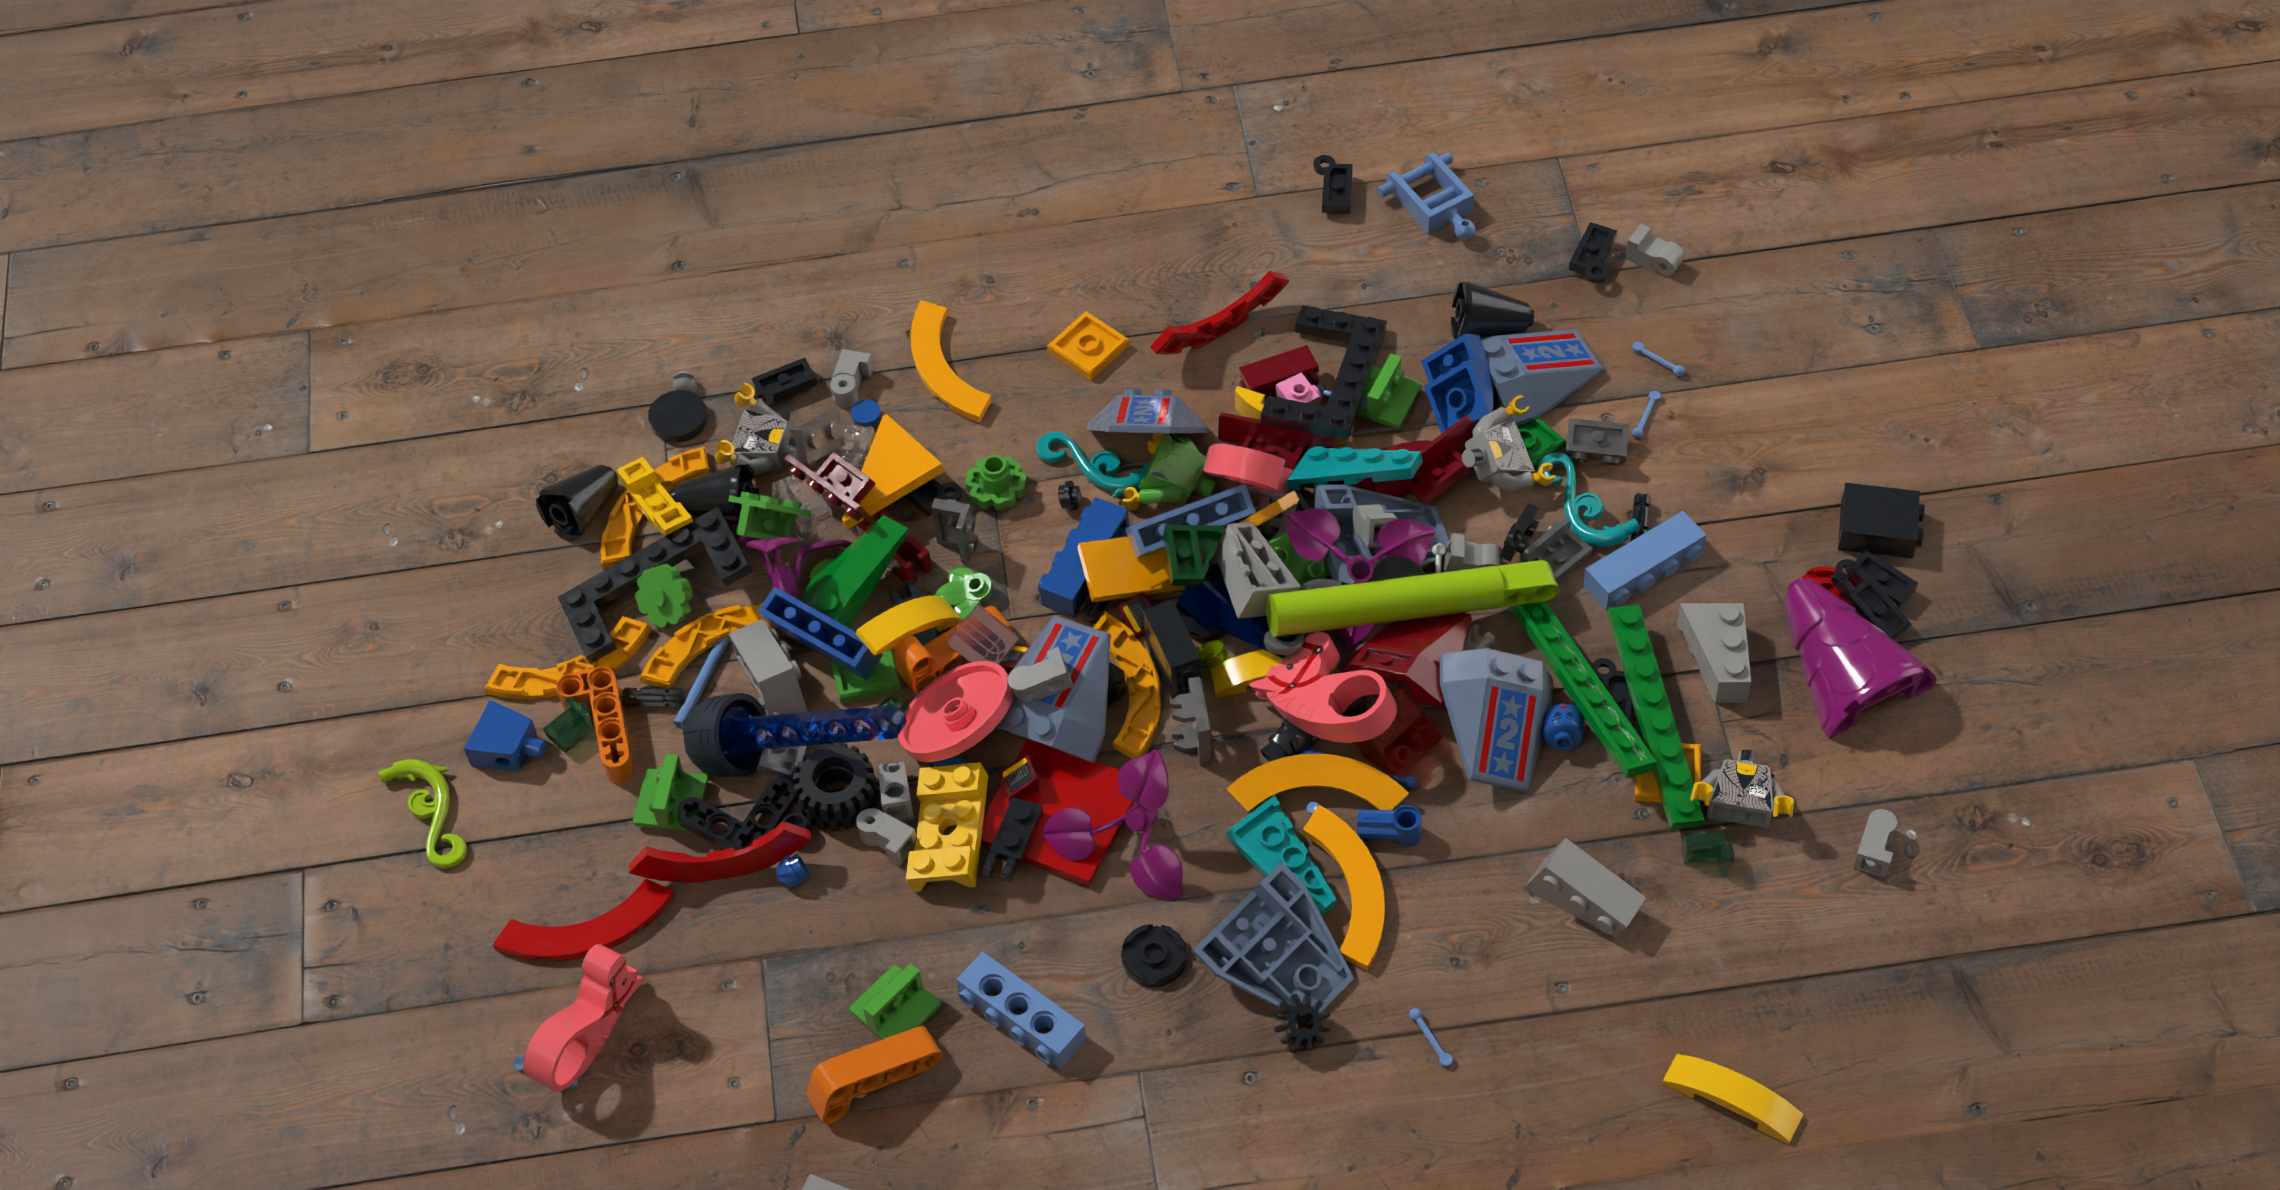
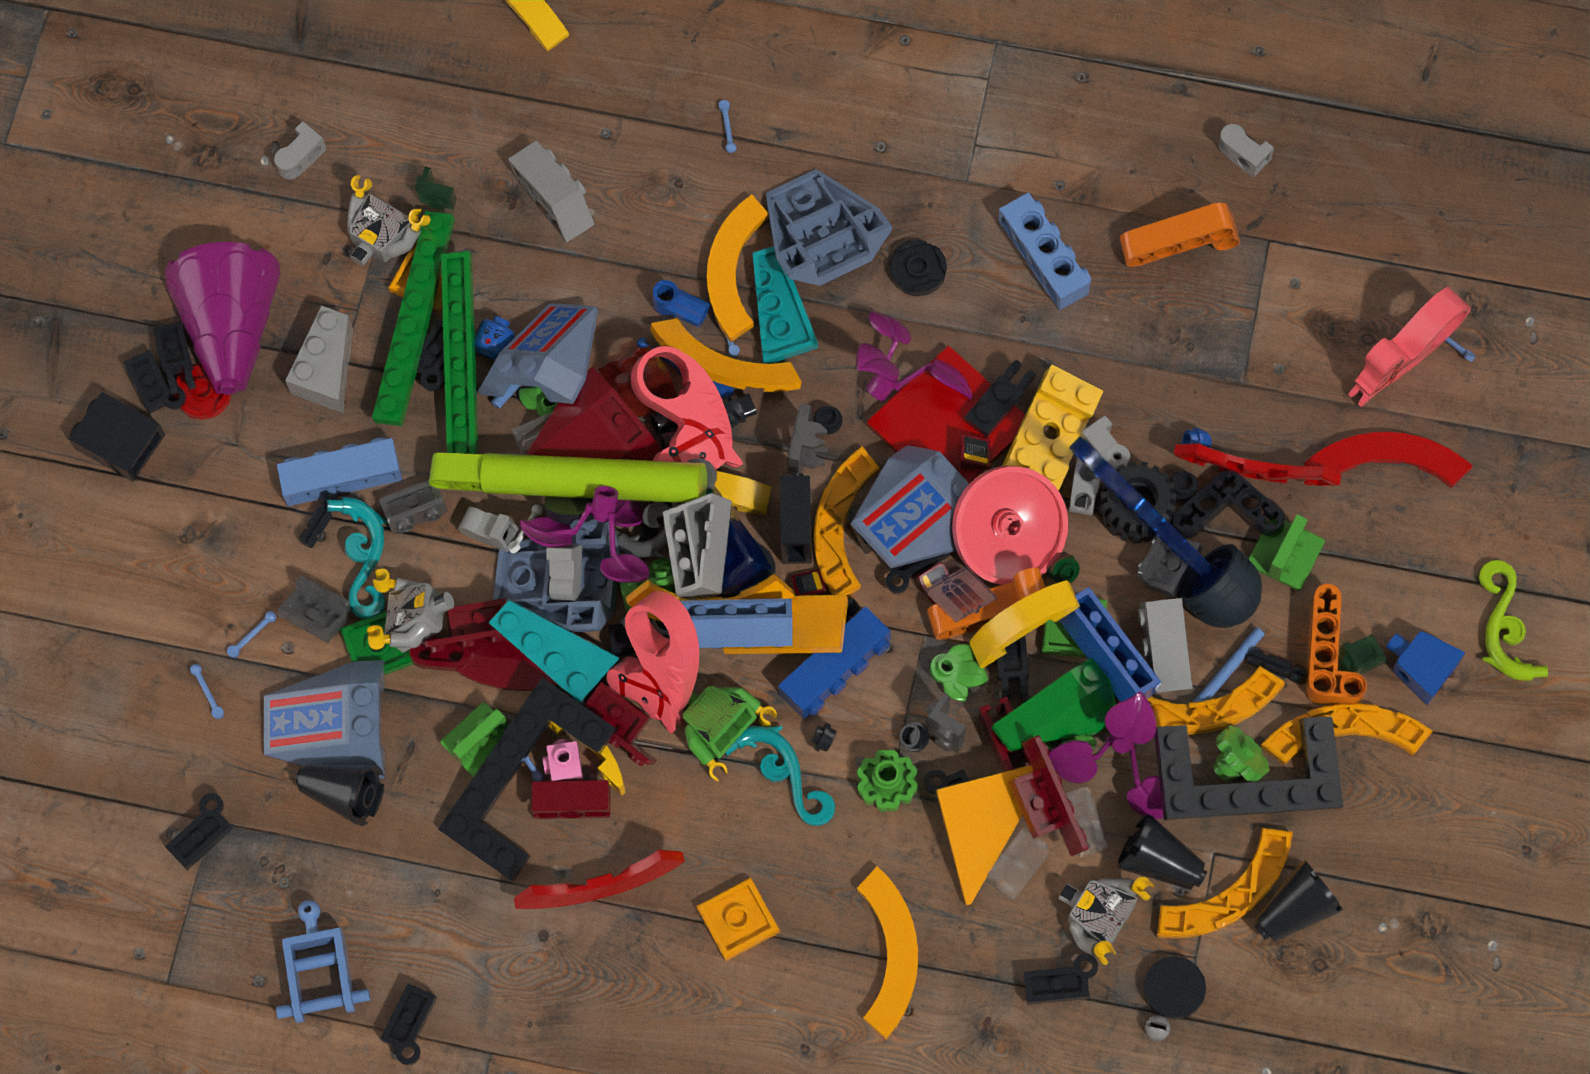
camera: 160 degrees left, 15 degrees up
(652, 497) = (1223, 867): yellow slope -> none
(767, 516) = (1120, 795): bright green bracket -> none
(818, 438) = (1050, 876): flat silver bracket -> none
(848, 375) = (991, 965): light grey leg -> none
(866, 413) = (986, 917): blue tile -> none
(896, 1003) = (1146, 293): bright green bracket -> none
(986, 523) = (914, 736): none -> black plate
(1041, 678) = (928, 495): light grey leg -> none
(1147, 414) = (727, 765): sand blue wedge -> none
(1185, 770) = (829, 418): none -> black plate
(1190, 551) = (747, 575): dark green wing -> none
(1212, 654) = (760, 520): clear neon green tile -> none
(1314, 1024) = (825, 159): black gear -> none
(1459, 381) = (411, 707): blue slope -> none
(1520, 533) = (437, 530): black hinge -> none
(1653, 252) = (143, 810): light grey leg -> none

